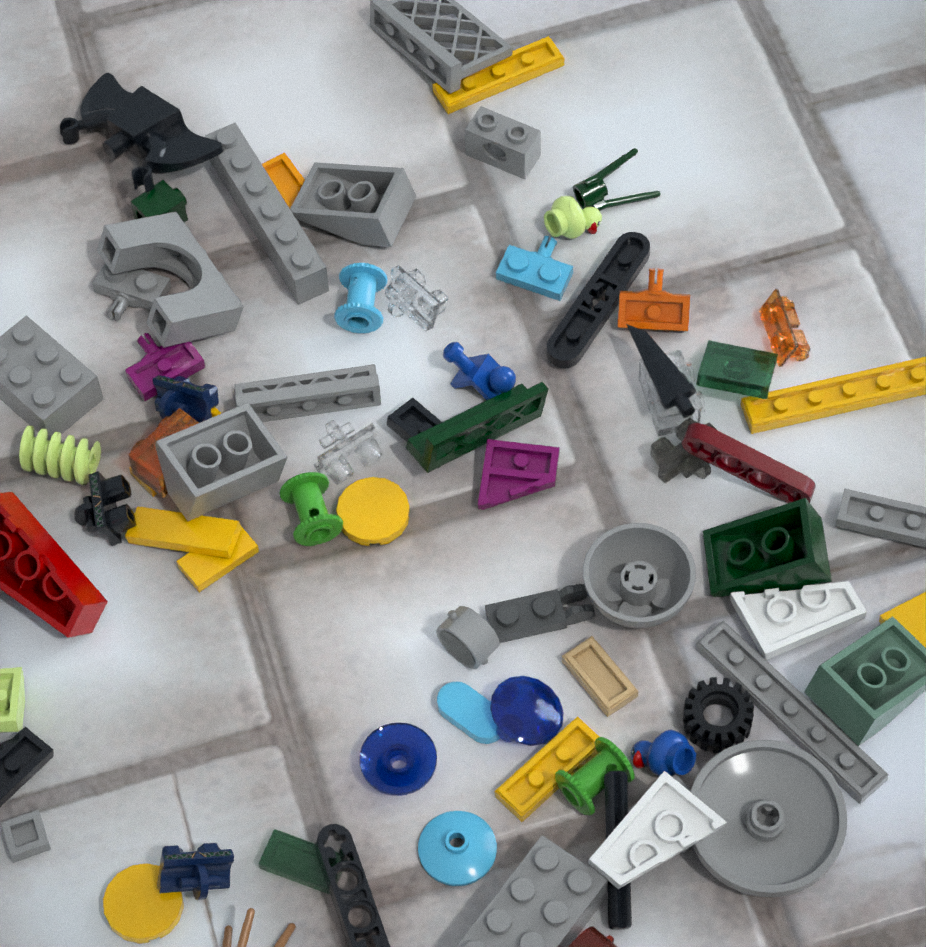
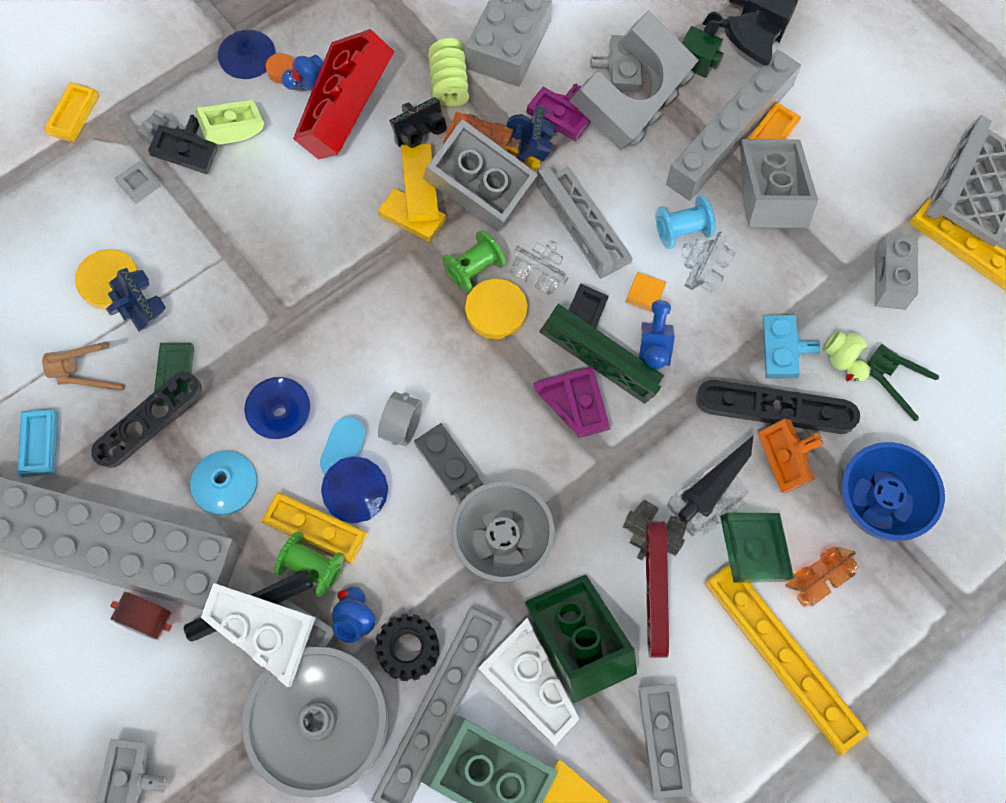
camera: 65 degrees right, 10 degrees up
(419, 367) = (645, 291): none -> light orange tile
(600, 676) = (412, 537): tan tile -> none
(732, 234) = (903, 481): none -> blue piece

